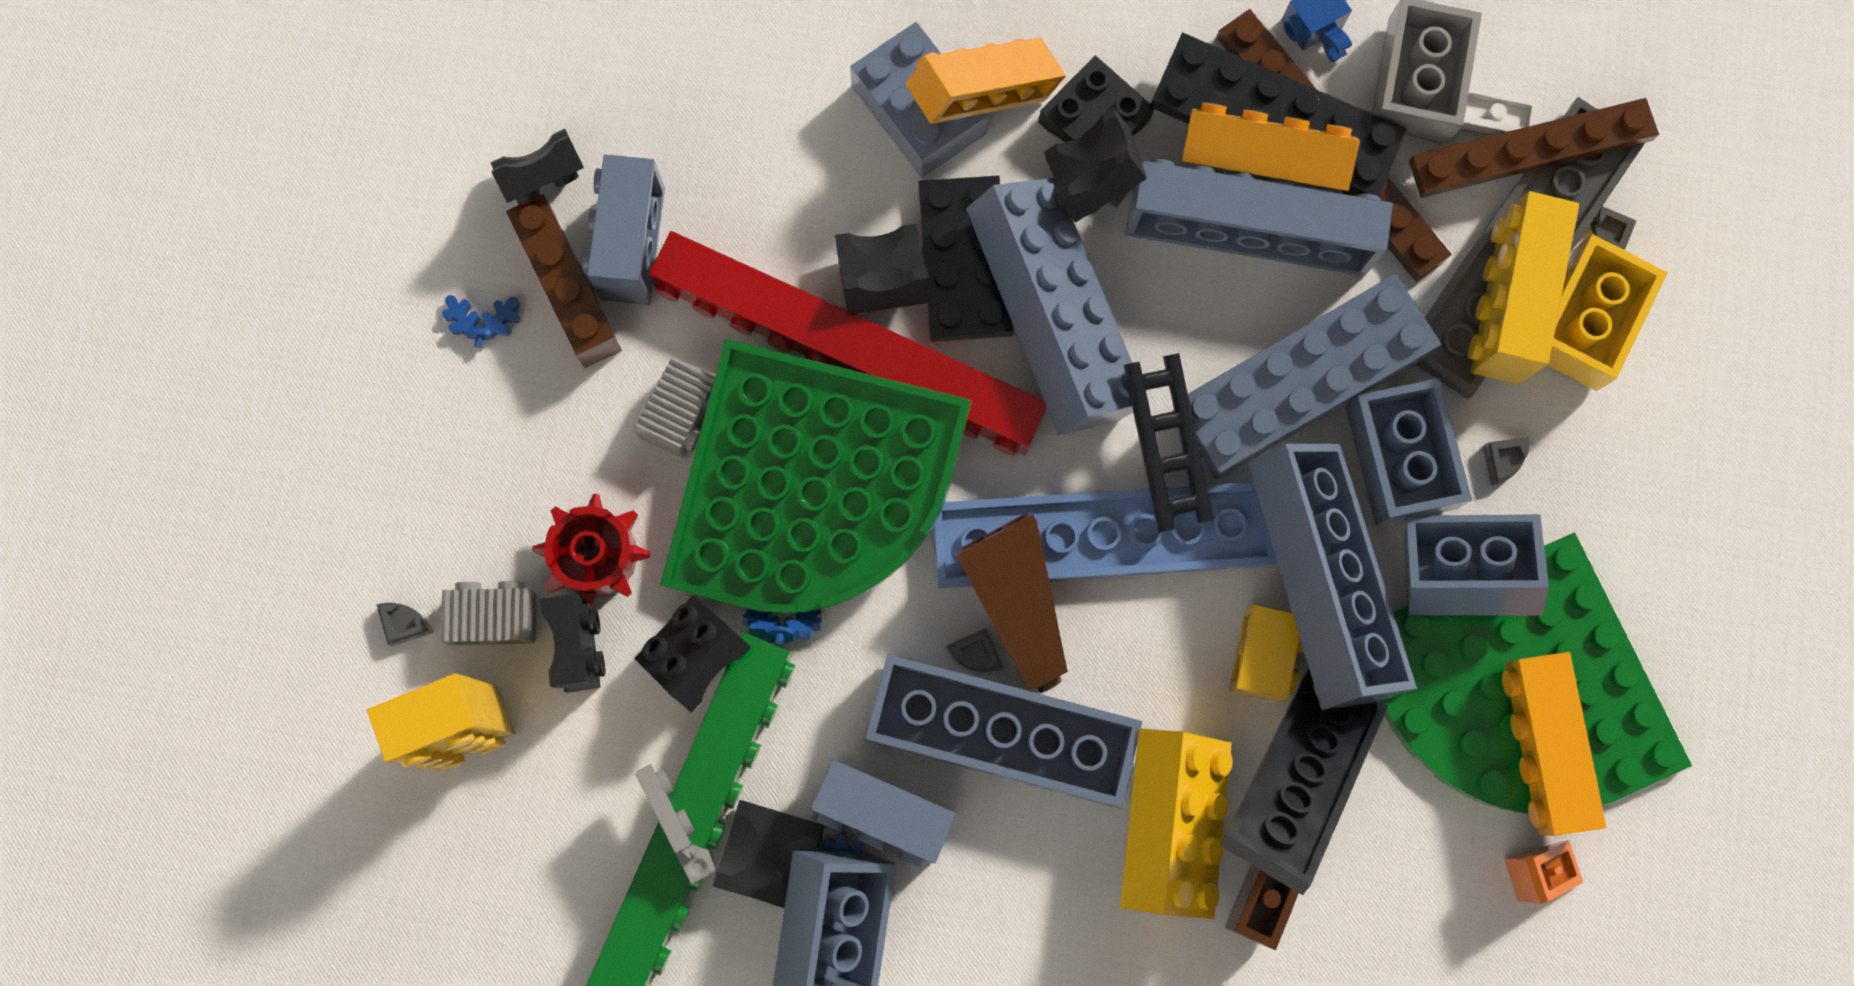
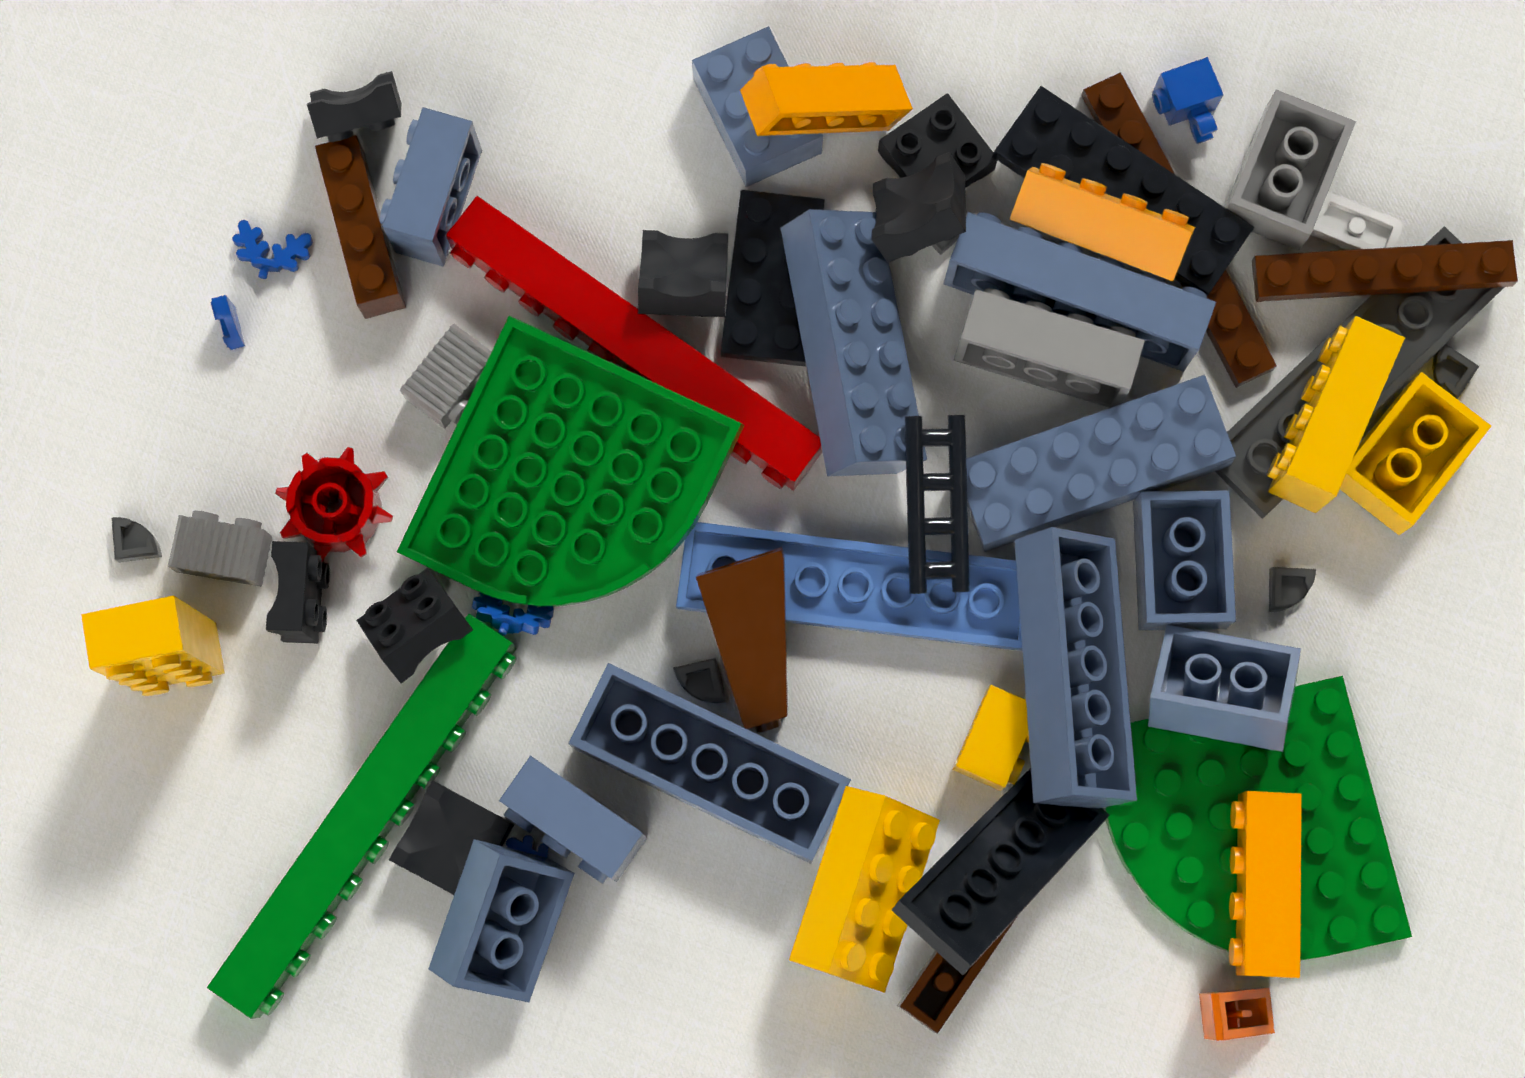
camera: 15 degrees right, 0 degrees up
(450, 387) = (226, 312): none -> blue tile
(677, 826) = (364, 792): light grey hinge -> none
(1241, 276) = (1049, 348): none -> light grey brick

